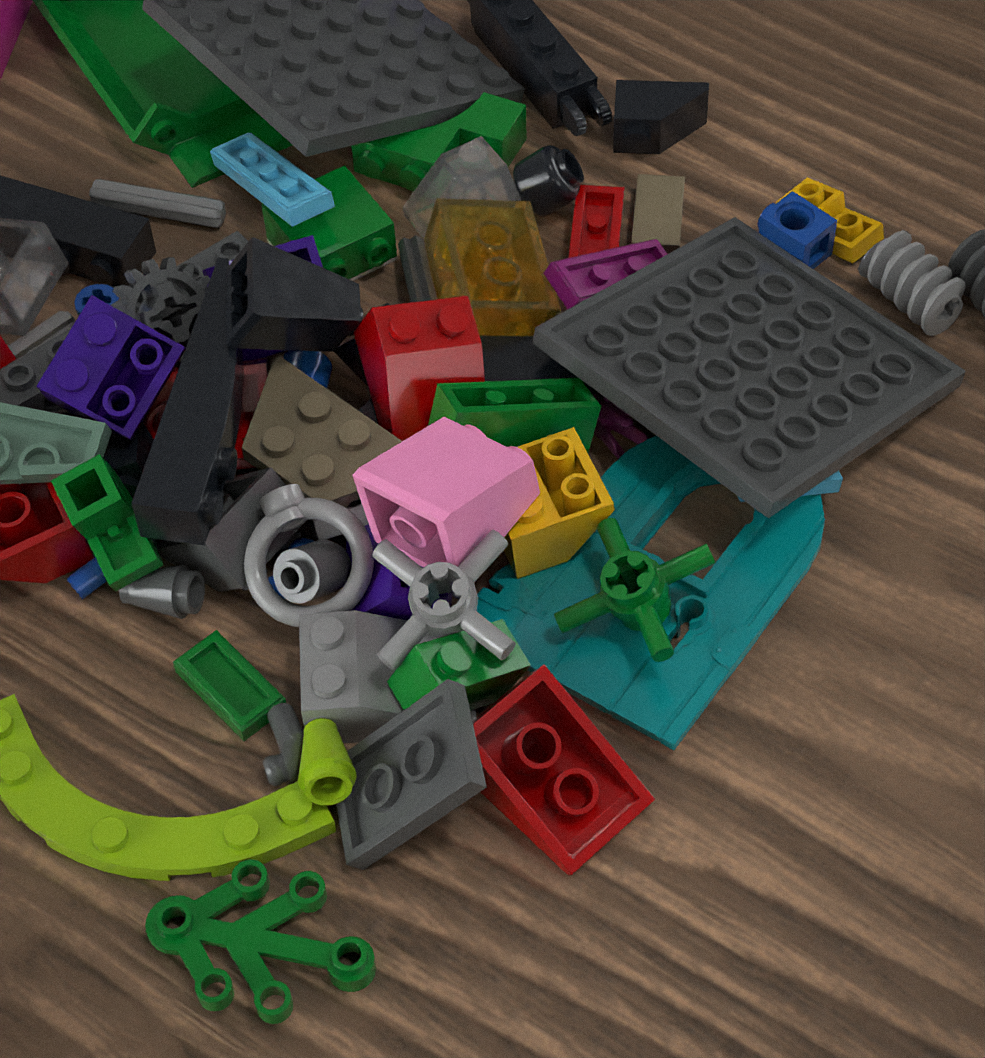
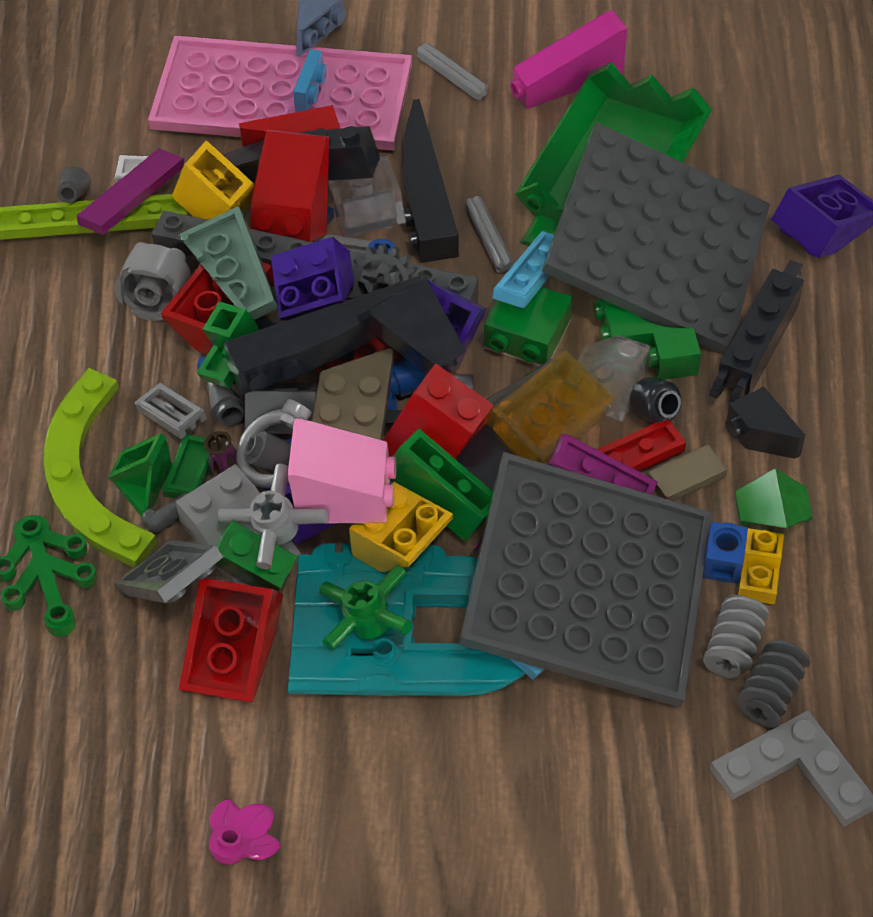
camera: 55 degrees right, 0 degrees up
(122, 665) = (165, 414): none -> light grey tile
(195, 740) = (142, 472): none -> green slope
(250, 622) = (220, 448): none -> piece
(325, 765) = (157, 534): lime cone -> none
(759, 167) = (773, 501): none -> green slope
(844, 909) = (244, 829): none -> dark pink plate

